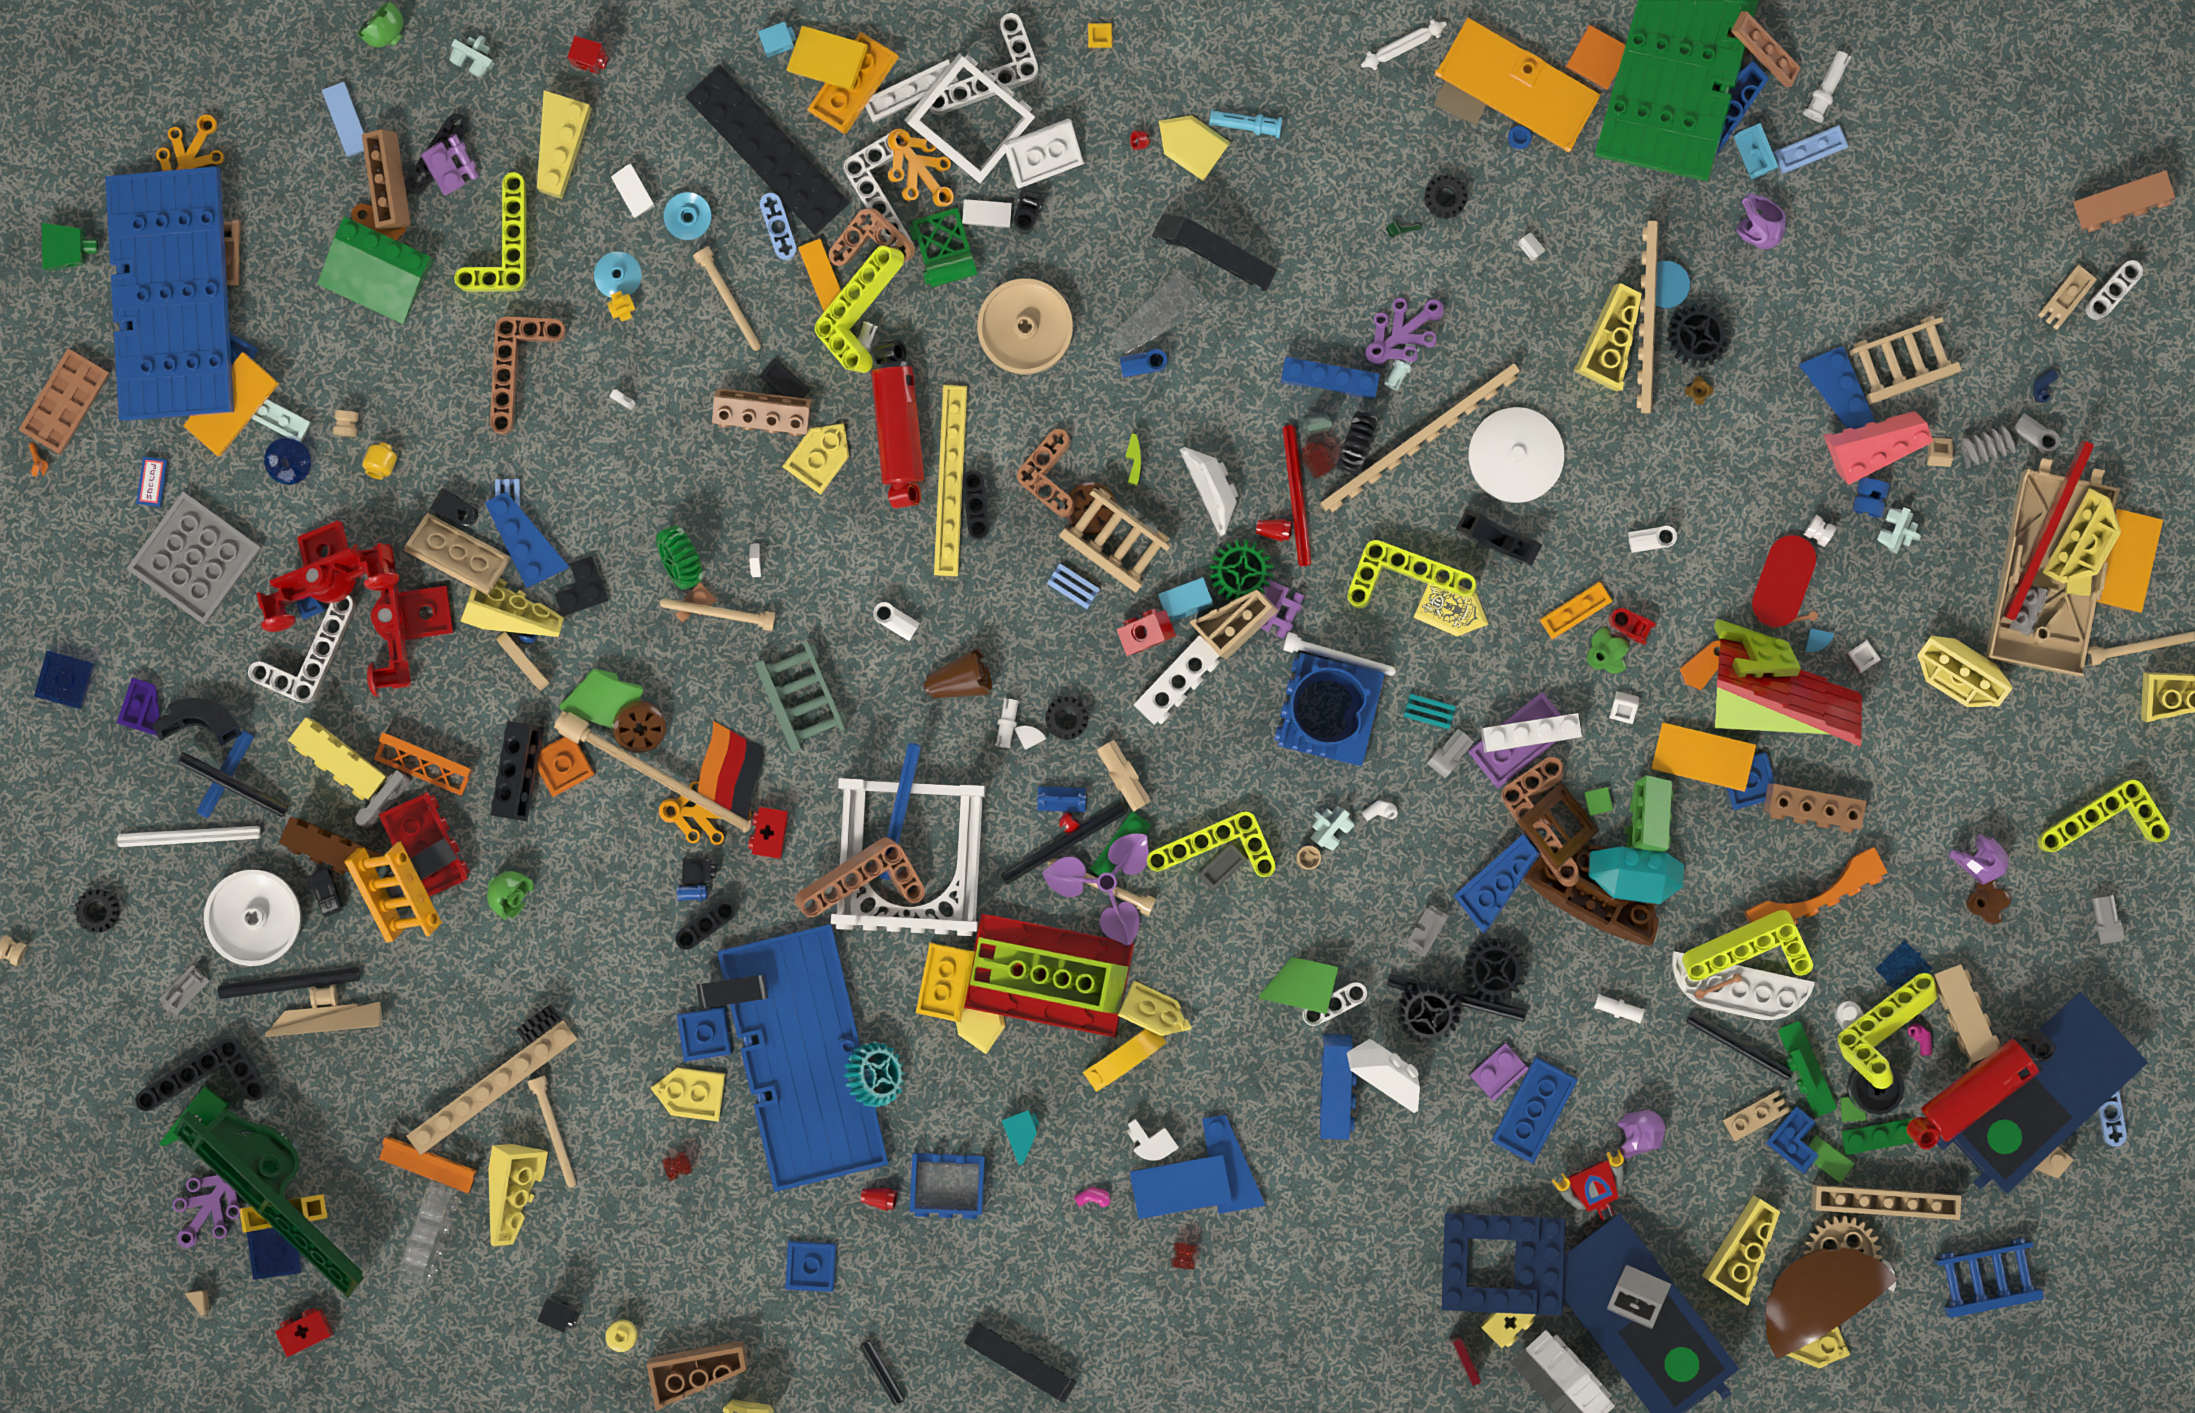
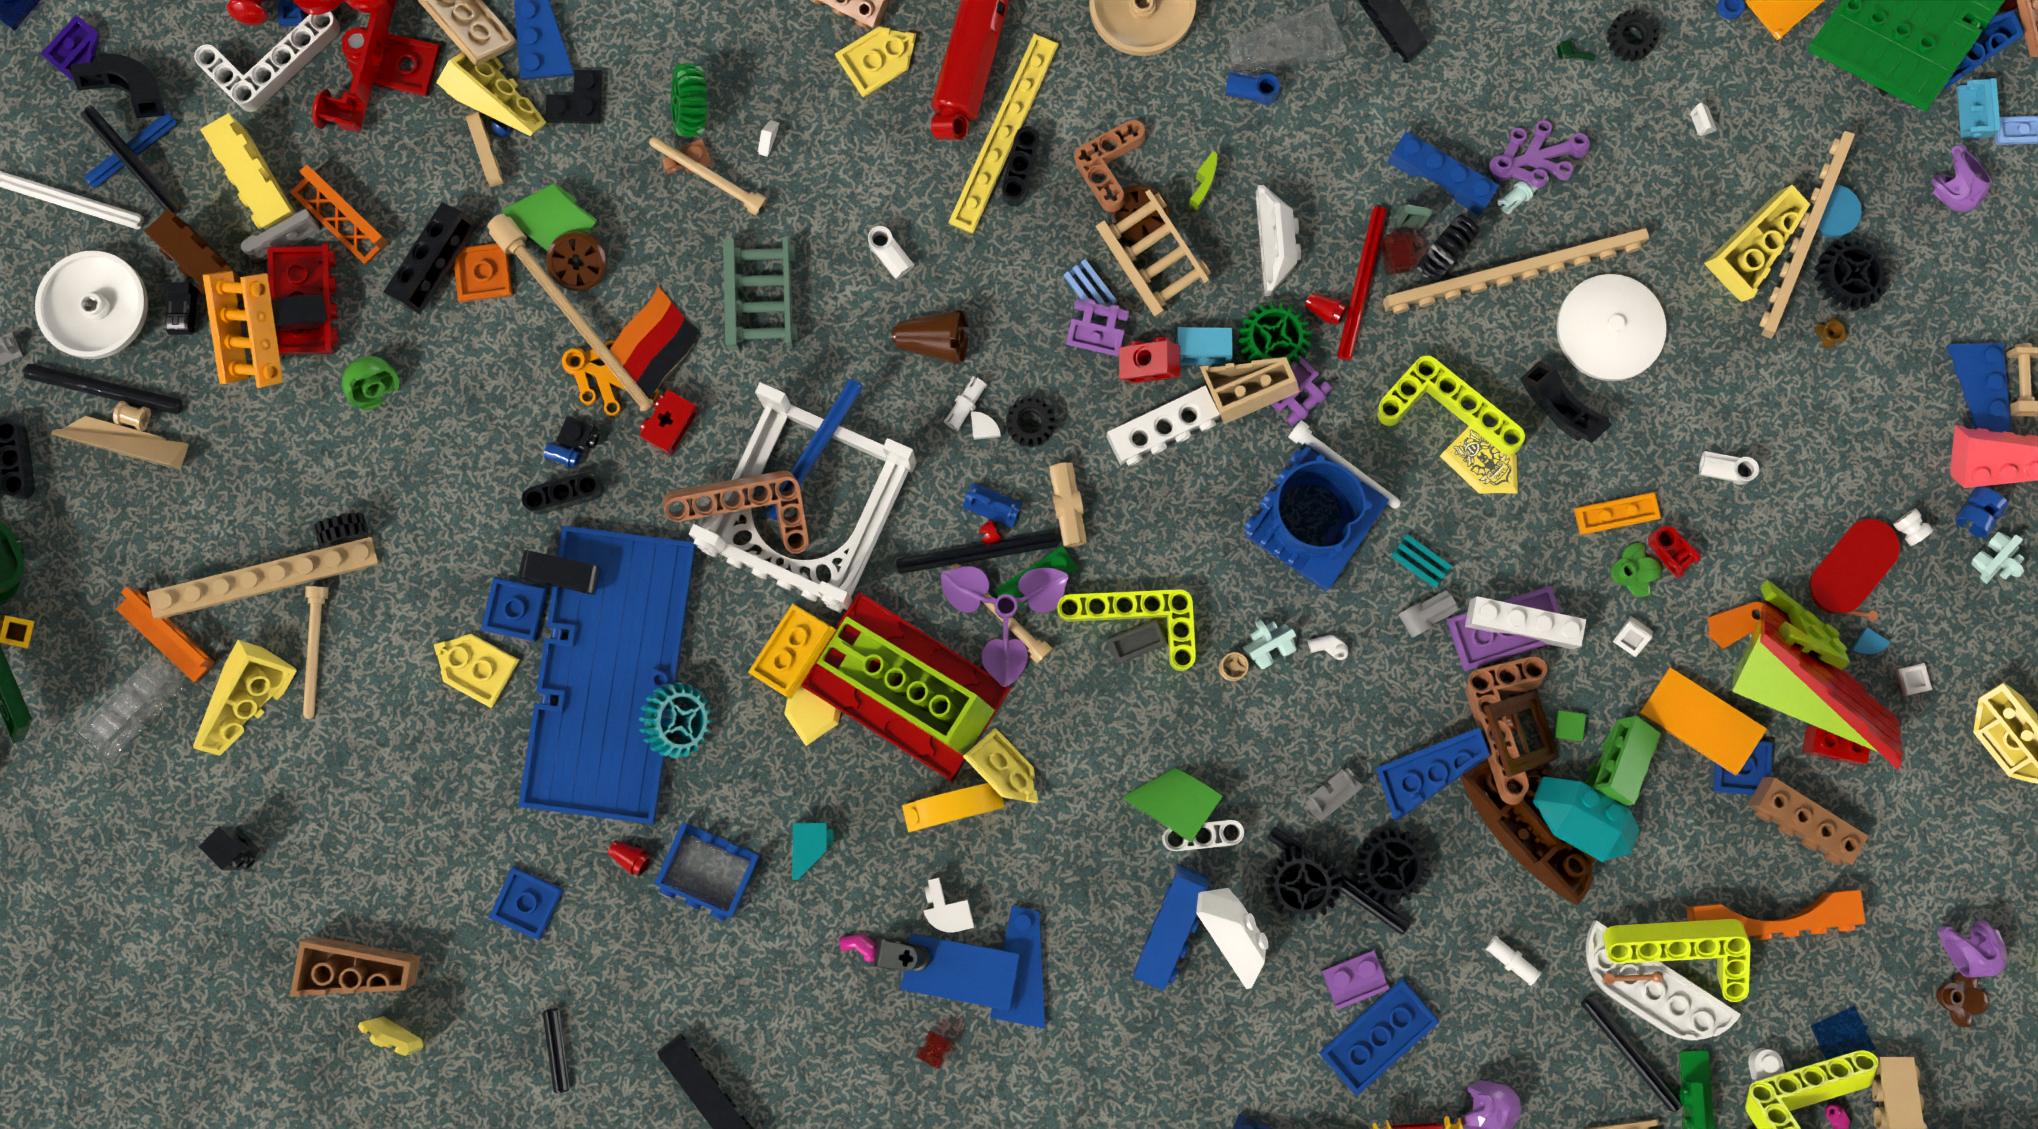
camera: 25 degrees right, 5 degrees down
(621, 1335) = (290, 899): light yellow head -> none
(677, 1166) = (426, 738): clear red wheel -> none
(1092, 625) = (1096, 335): none -> medium lavender plate
(1126, 1192) = (898, 955): none -> pearl dark grey piece
(1806, 741) = (1833, 747): none -> red brick

